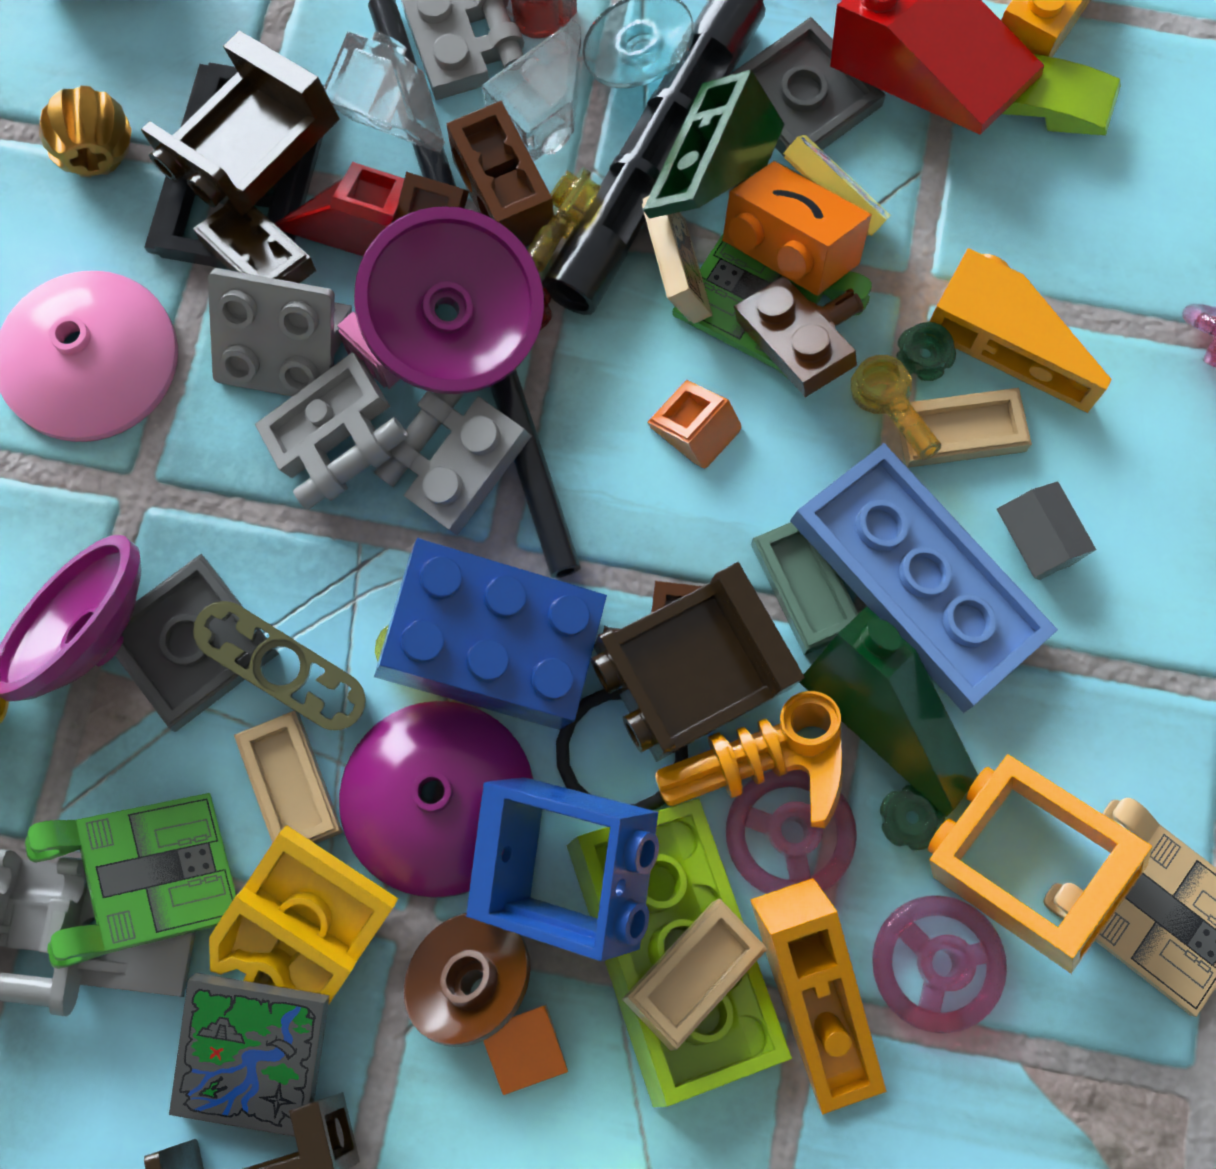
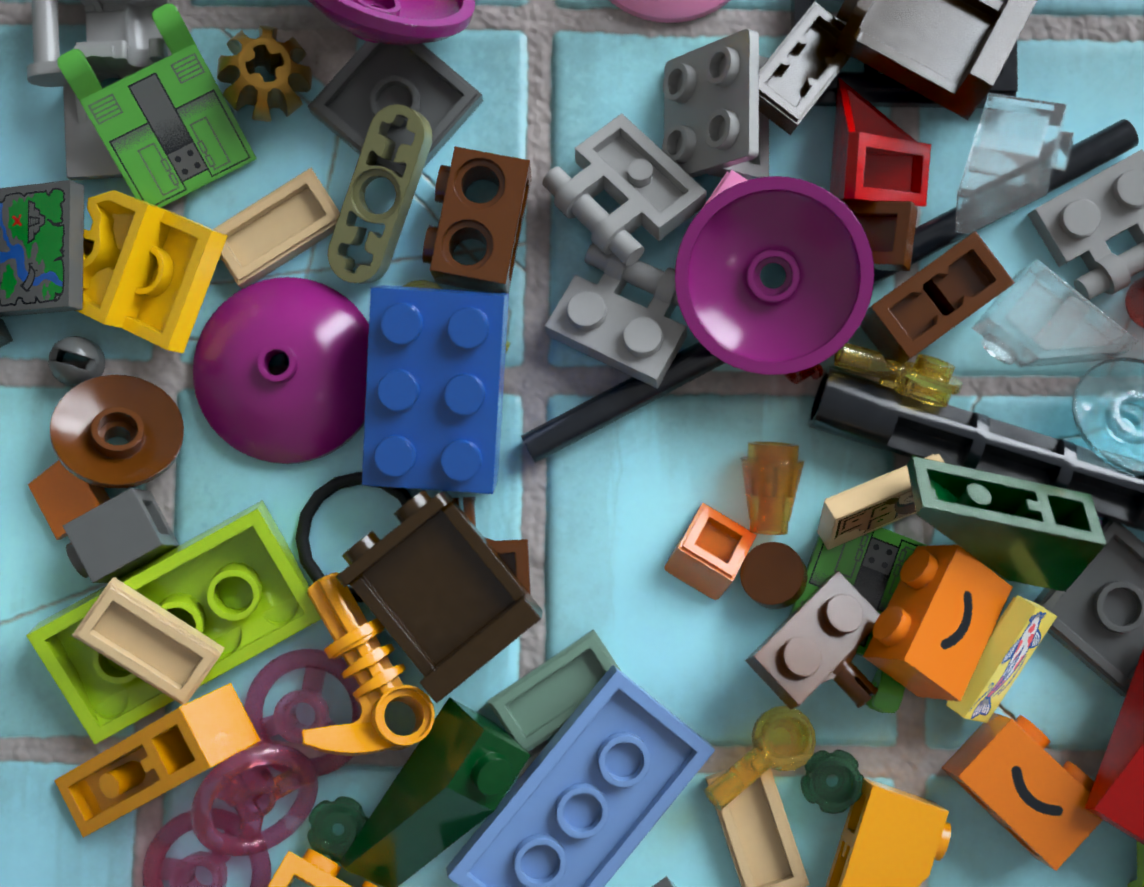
camera: 80 degrees right, 10 degrees up
(124, 761) = (249, 87): none -> pearl gold piece
(337, 562) = (493, 223): none -> reddish brown brick
(393, 1028) = (80, 346): none -> dark grey hinge
(504, 882) = (216, 446): blue window -> none
(578, 999) = (118, 536): none -> dark grey brick
(642, 353) = (771, 485): none -> clear orange cone
(728, 366) = (773, 575): none -> reddish brown tile
(866, 894) = (252, 790): none -> clear pink piece
(954, 190) = (1025, 787): none -> orange brick

